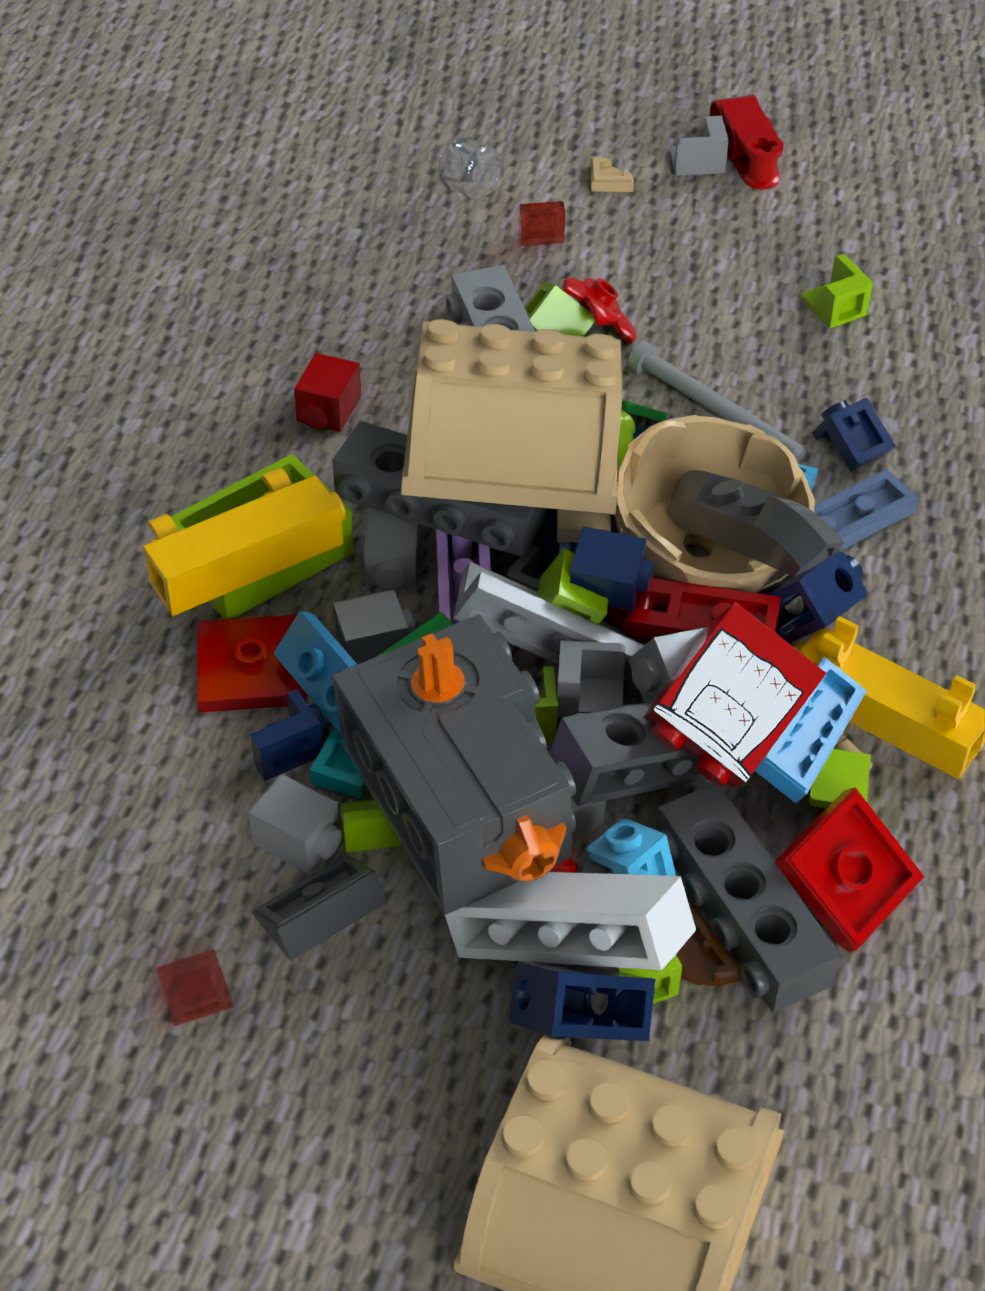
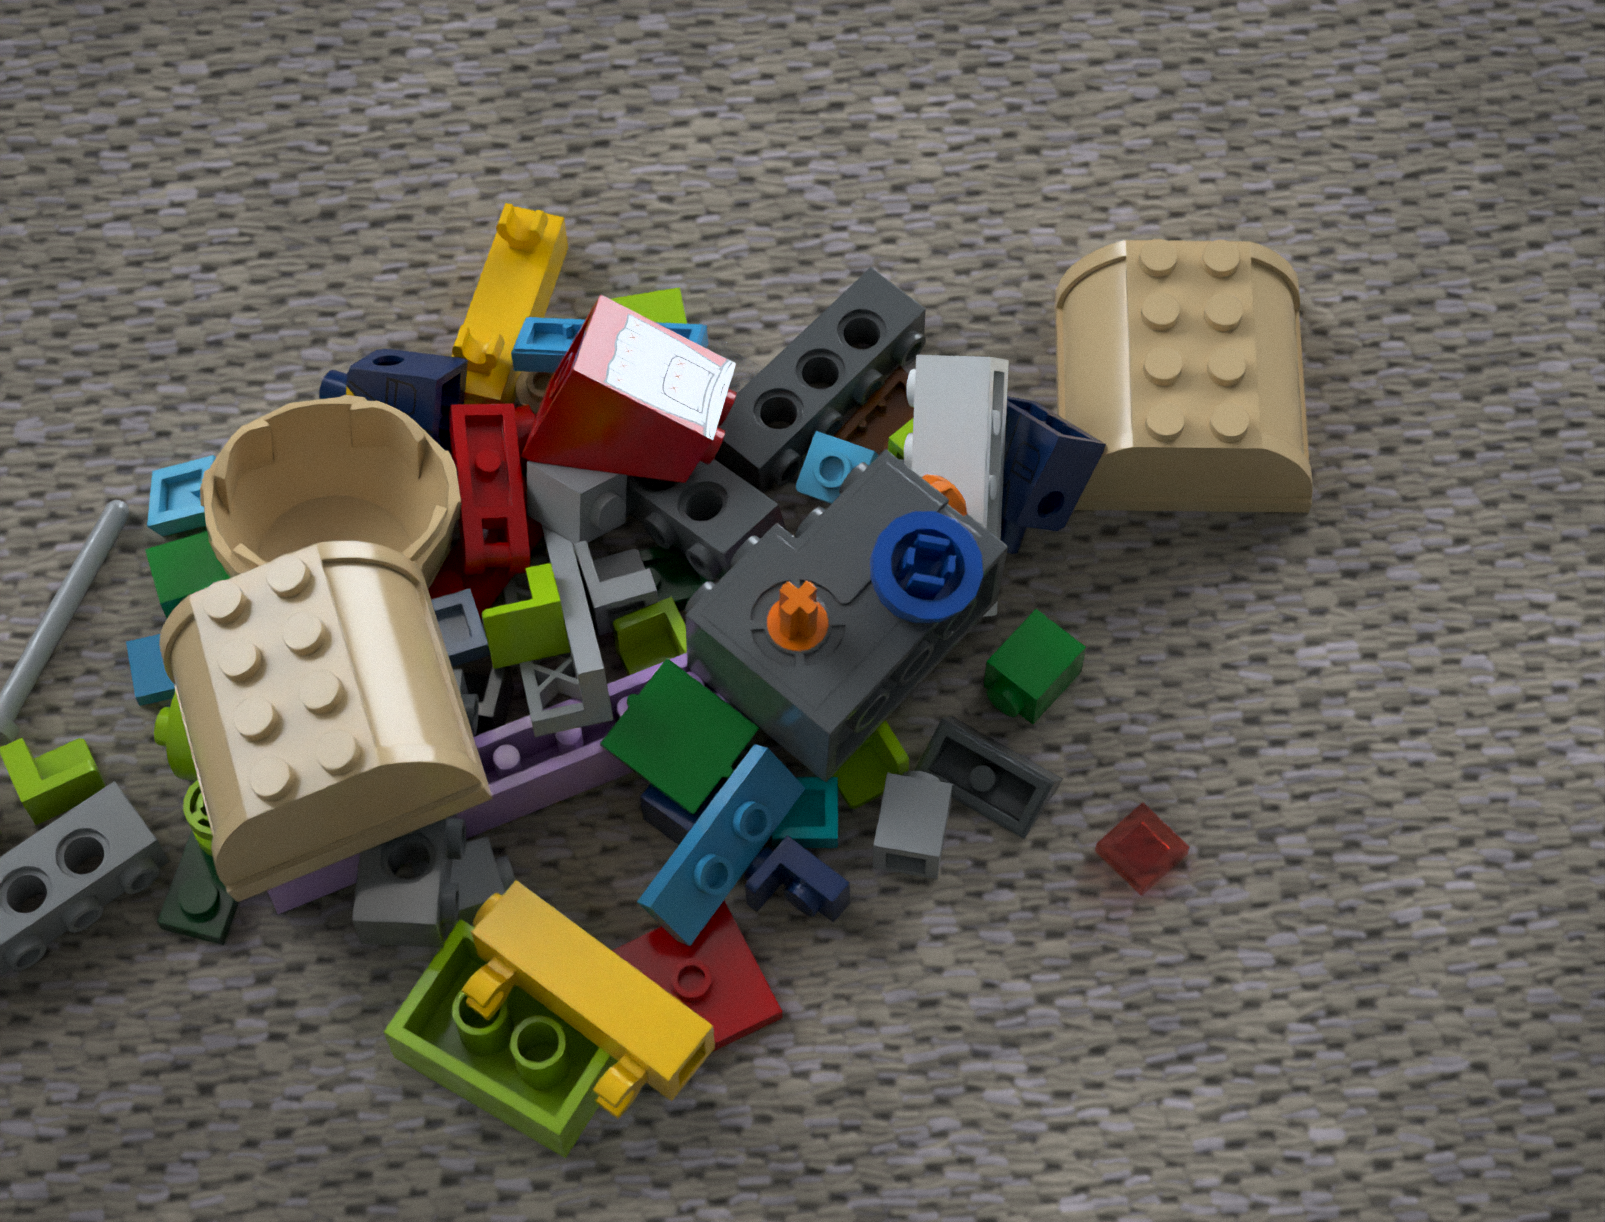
camera: 110 degrees left, 15 degrees up
(327, 392) = (202, 1083): red brick -> none
(371, 624) = (605, 857): light grey brick -> none
(391, 957) = (1033, 668): none -> green brick
(427, 751) = (925, 567): none -> blue piece
(612, 567) = (488, 567): dark blue brick -> none
(643, 411) = (123, 696): green piece -> none
(752, 522) = (365, 437): dark grey brick -> none
(849, 869) = (752, 292): red plate -> none
(855, 432) = (72, 447): dark blue bracket -> none
(867, 507) = (197, 404): sand blue plate -> none

